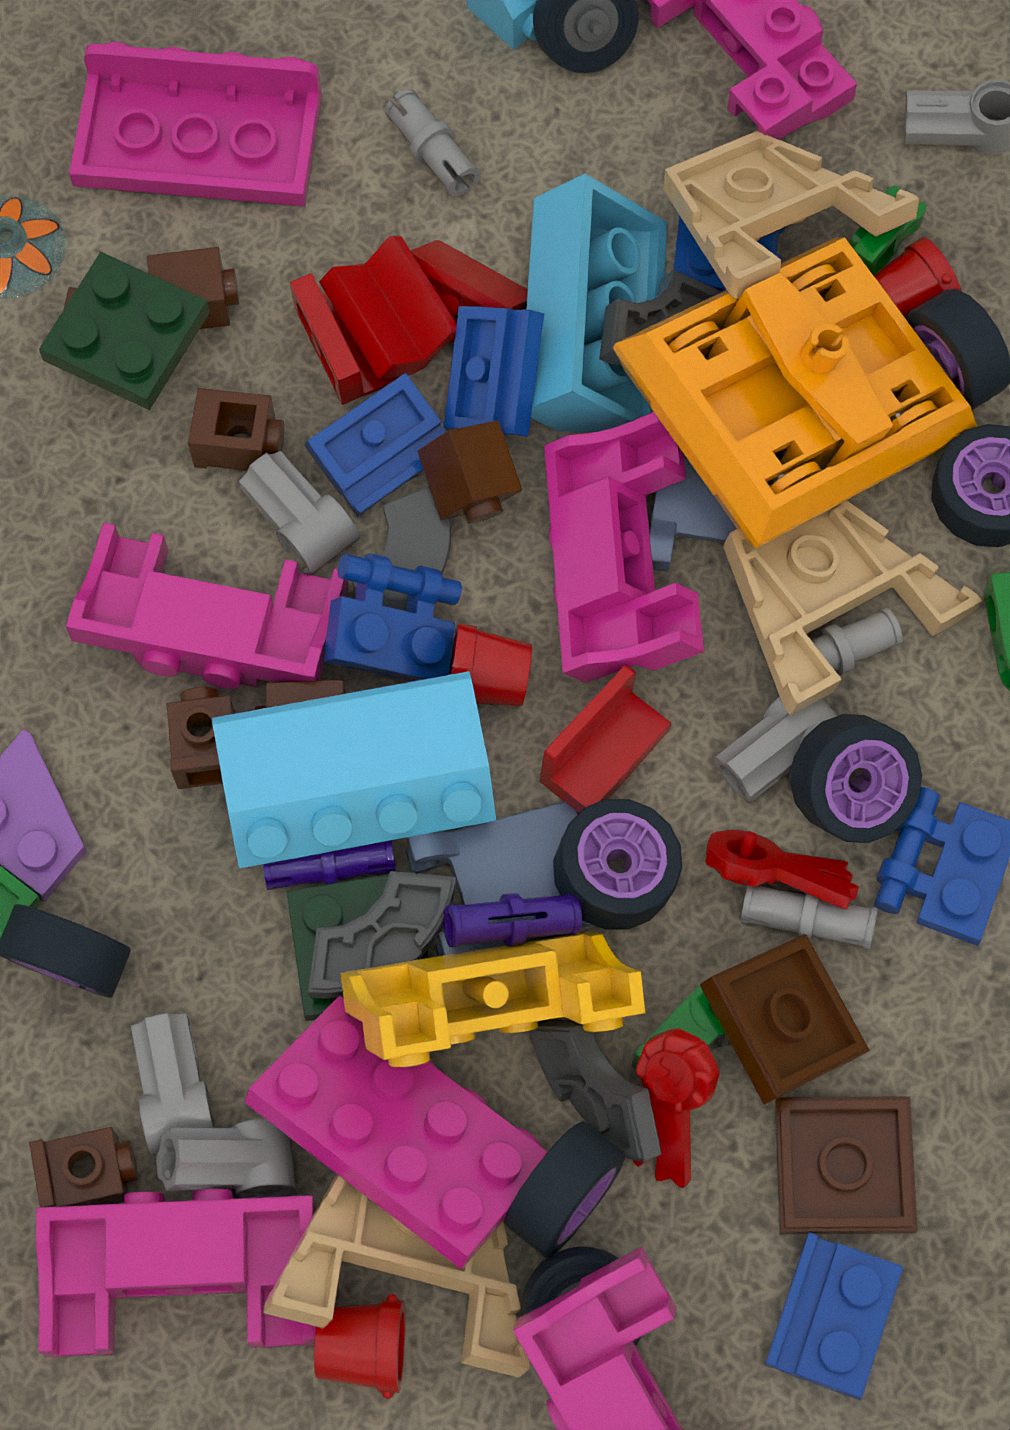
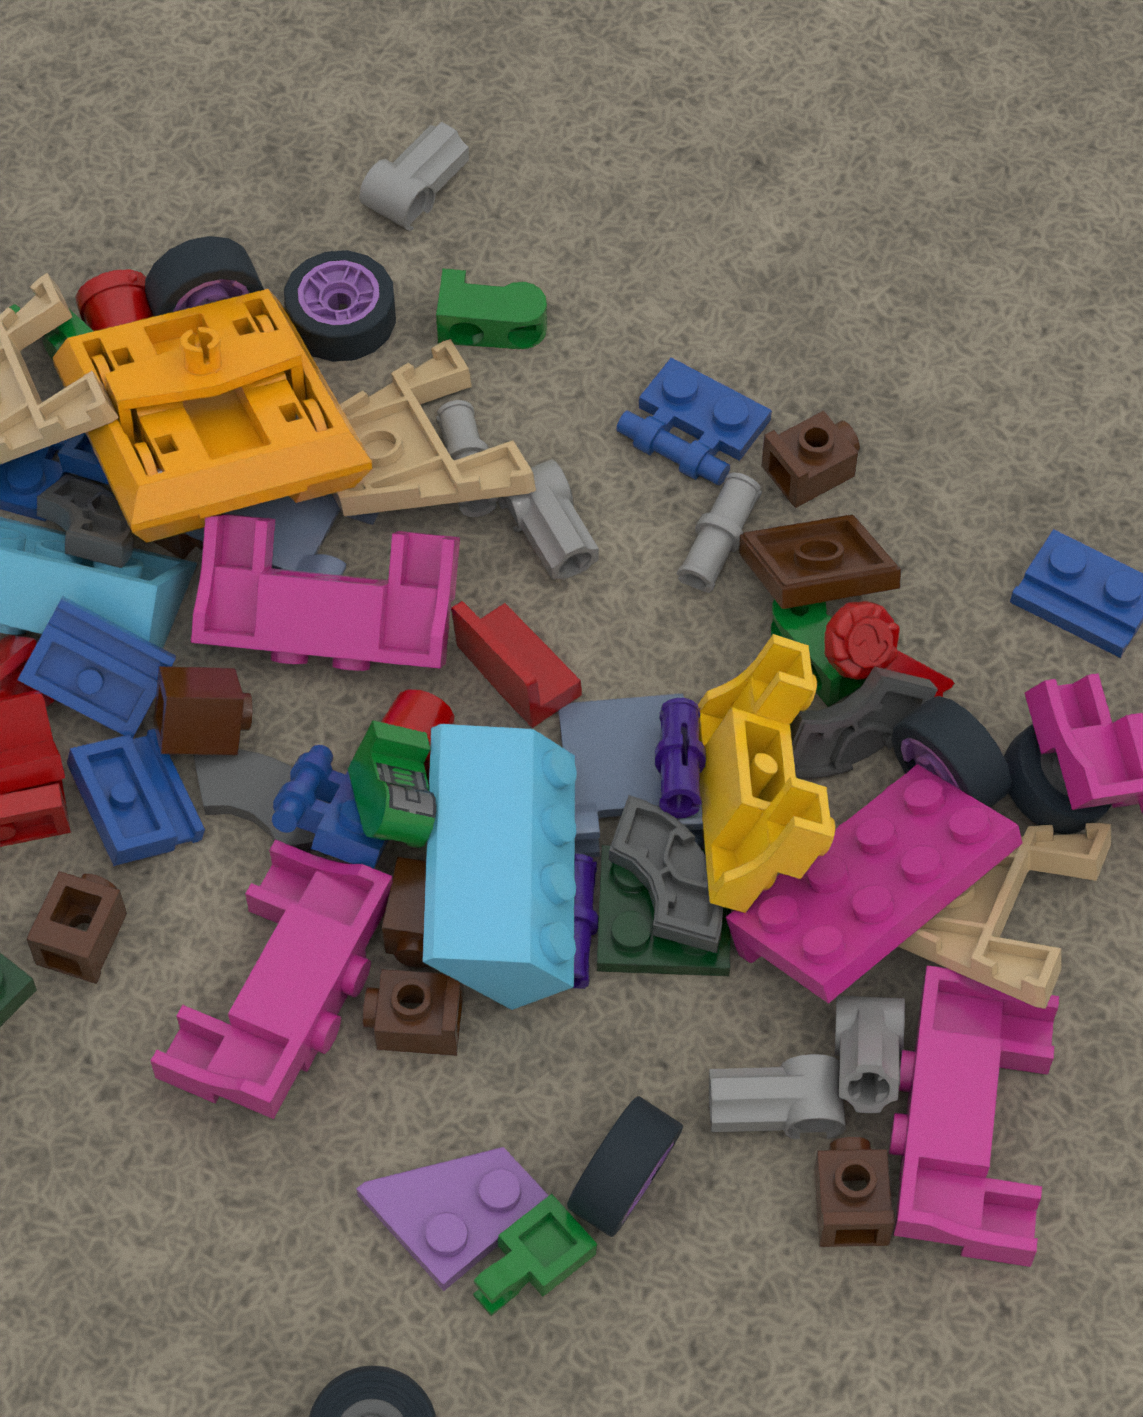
camera: 80 degrees left, 10 degrees down
(303, 519) = (201, 877): light grey piece -> none
(363, 1346) = (1085, 950): red piece -> none
(396, 652) = (393, 784): none -> green leg
(650, 864) = (636, 666): wheel -> none
(756, 860) = (663, 559): red piece -> none
(845, 1165) = (955, 557): reddish brown tile -> none
(875, 800) = (604, 458): wheel -> none
(900, 990) = (811, 457): none -> reddish brown brick

